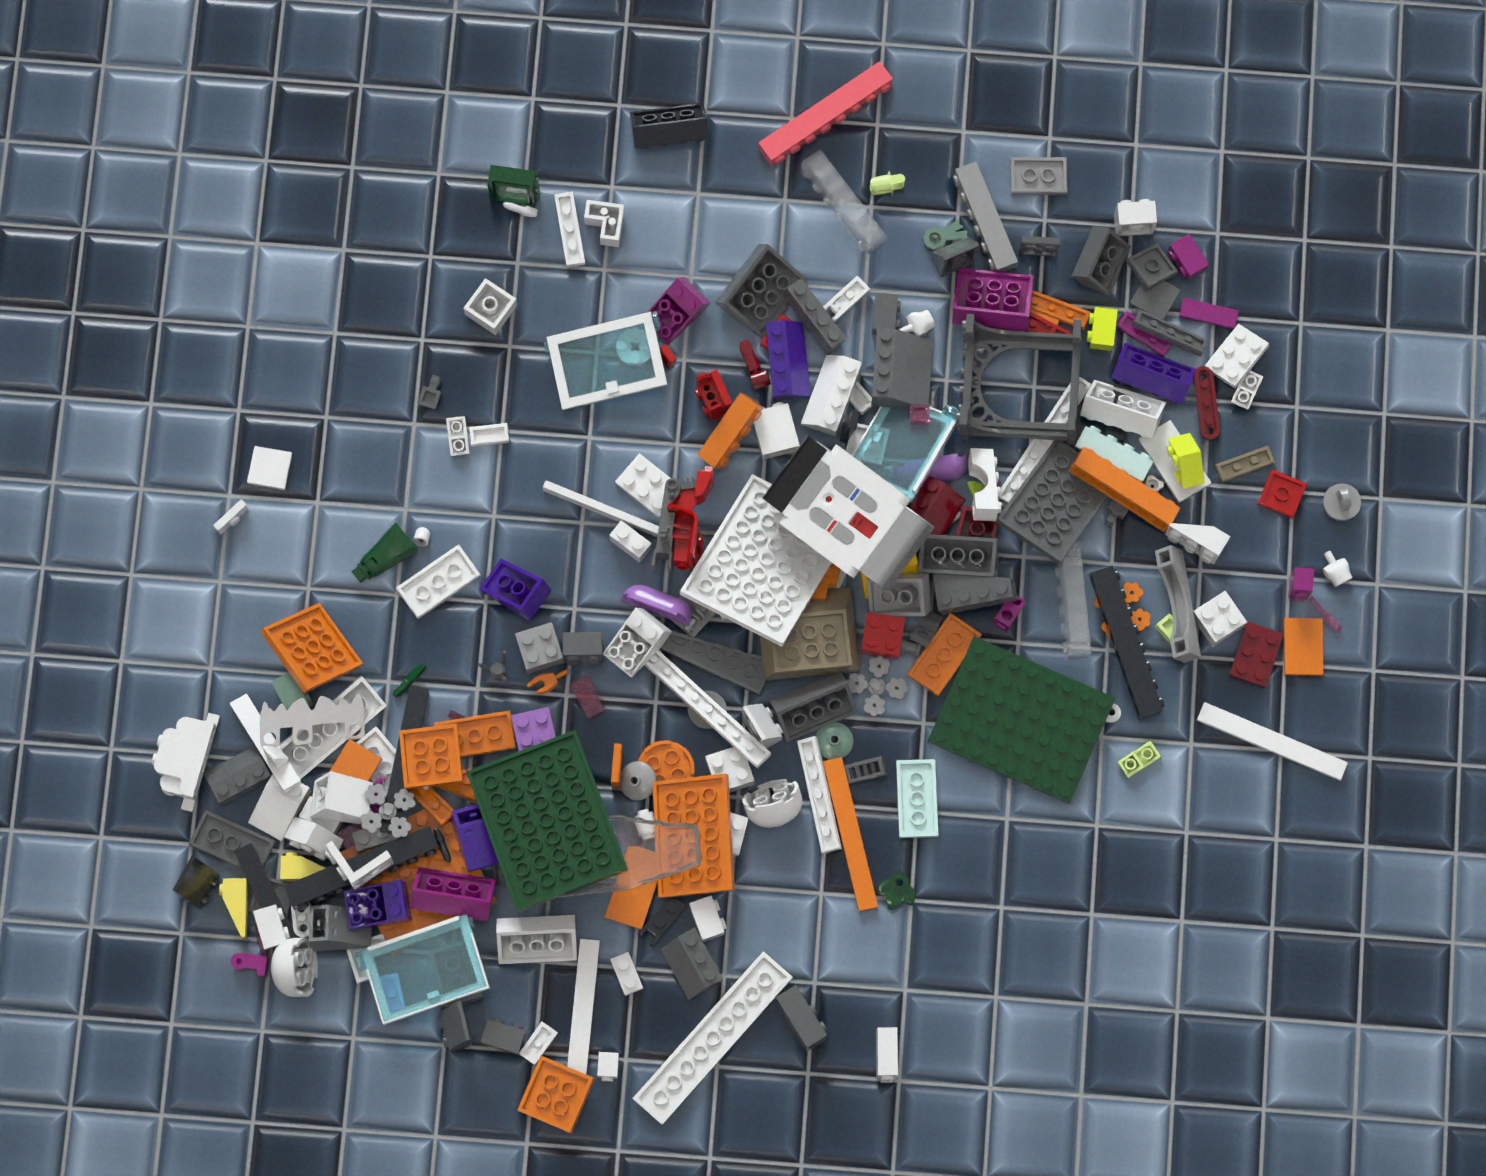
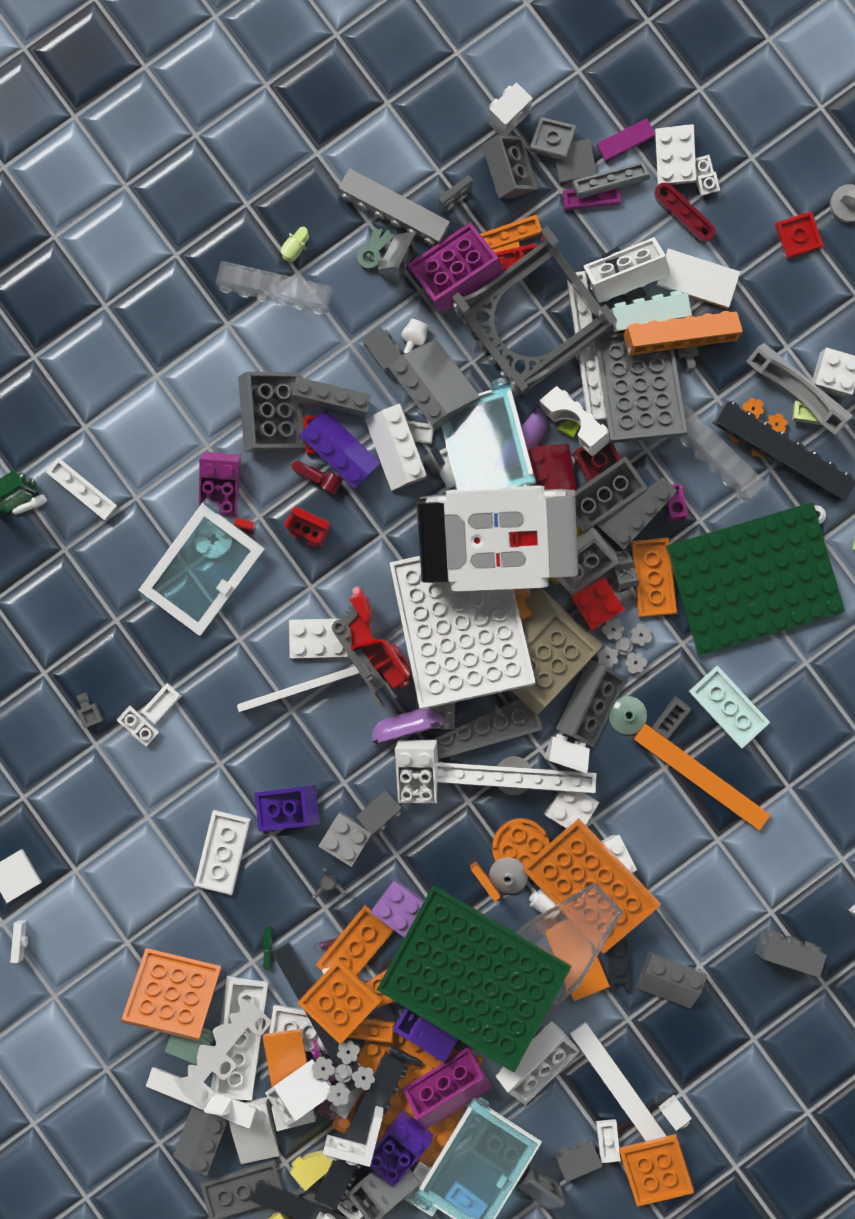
camera: 40 degrees left, 10 degrees up
(184, 757) = (147, 1159): white brick -> none
(311, 837) = (303, 1138): white brick -> none
(387, 552) = (163, 867): dark green piece -> none
(421, 533) = (179, 828): white piece -> none
(490, 306) = (73, 603): white brick -> none
(549, 680) = (373, 855): orange hand -> none
(587, 696) = (413, 843): clear pink plate -> none
(607, 216) = (104, 454): white brick -> none
(626, 974) = (627, 1029): white plate -> none
(630, 541) = (342, 695): white brick -> none
(669, 125) = (87, 340): black slope -> none
(707, 918) = (653, 937): white brick -> none
(712, 1038) = (734, 1022): white plate -> none
(730, 431) = (345, 544): orange brick -> none
(773, 810) = (633, 812): white cylinder -> none
(776, 431) = (377, 513): white brick -> none
(819, 795) = (653, 767): white tile -> none
(825, 113) = (200, 228): coral brick -> none
(847, 298) = (342, 361): white hinge -> none
(897, 894) = (774, 793): dark green plate -> none
(919, 414) = (478, 407): clear pink plate -> none
(1038, 175) = (405, 140): light grey tile -> none
(1103, 329) = (558, 219): neon yellow brick -> none
(1151, 480) = (701, 307): white plate -> none
(1153, 373) = (625, 222): dark purple slope -> none
(1187, 257) = (574, 108): magenta brick -> none
(1187, 459) = (711, 268): neon yellow brick -> none
(1198, 539) = (781, 322): white slope -> none
(1245, 464) = (751, 235): dark tan tile -> none

